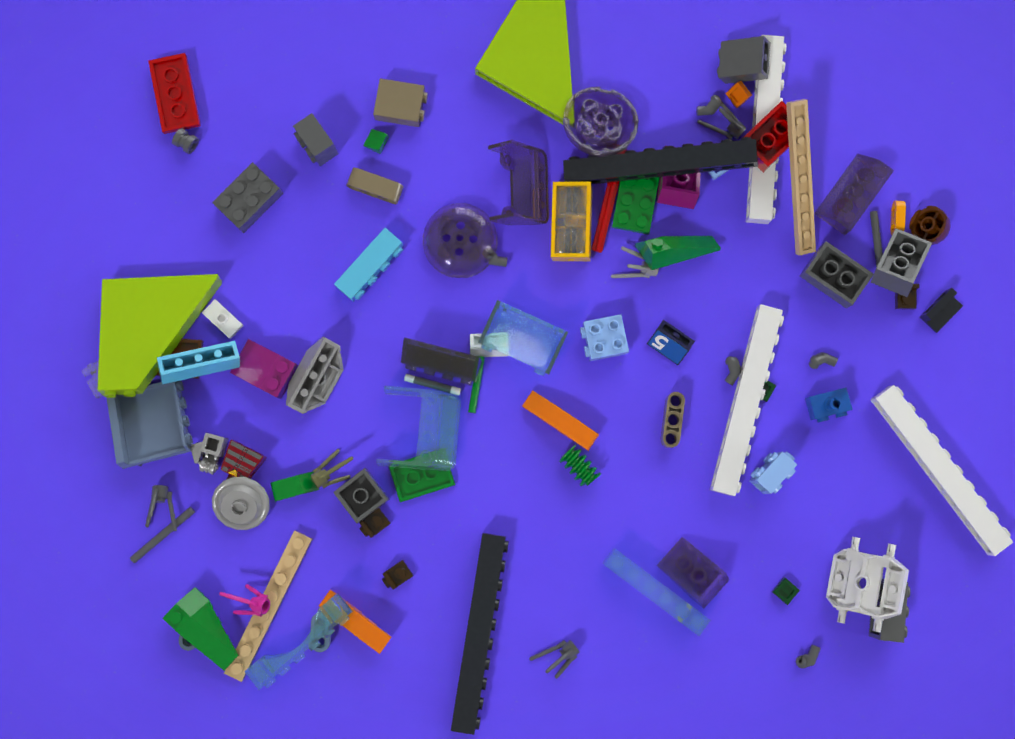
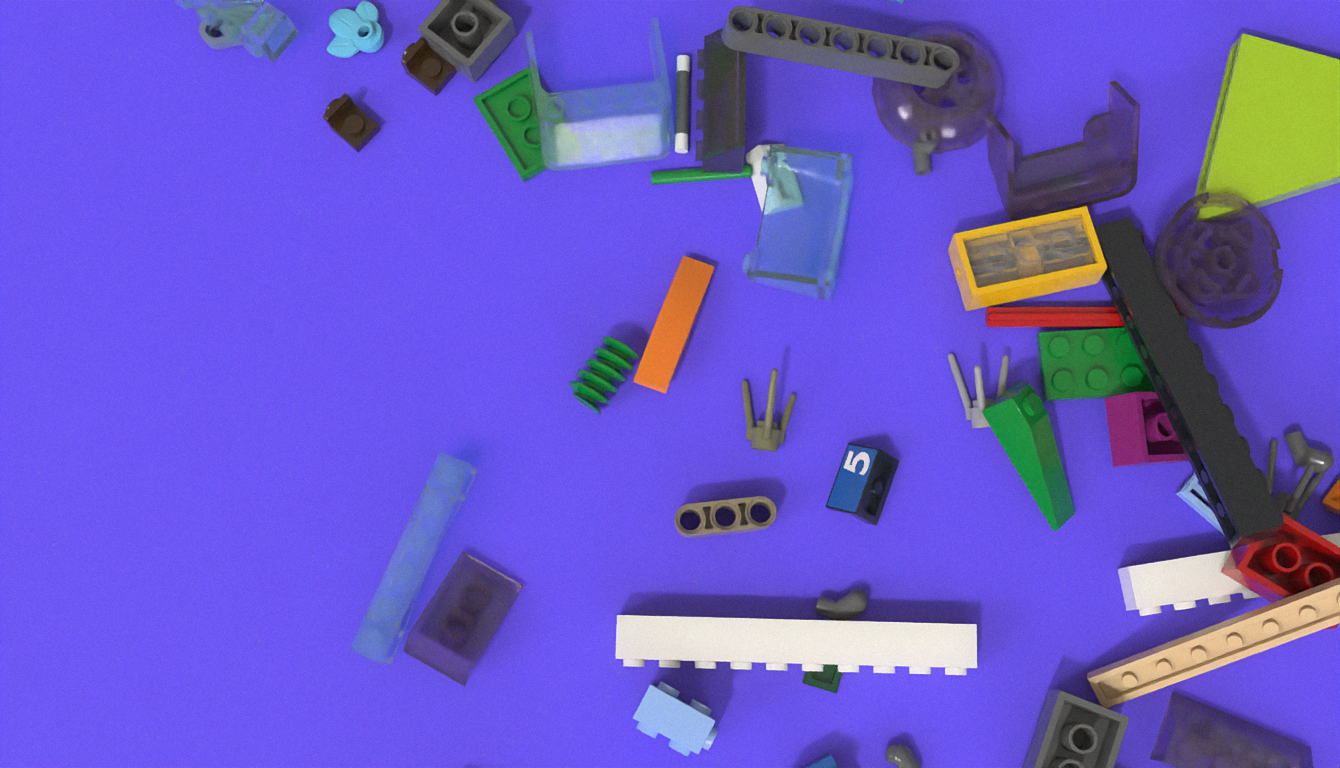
camera: 80 degrees right, 5 degrees down
(338, 563) = (355, 30): none -> medium azure plate
(363, 627) = (253, 86): orange slope -> none
(434, 299) = (824, 53): none -> dark grey beam
(478, 634) = (281, 275): black brick -> none
(568, 653) = (281, 433): dark grey plant -> none
(604, 337) = (838, 363): light blue brick -> none
(632, 385) = (765, 434): none -> olive plant

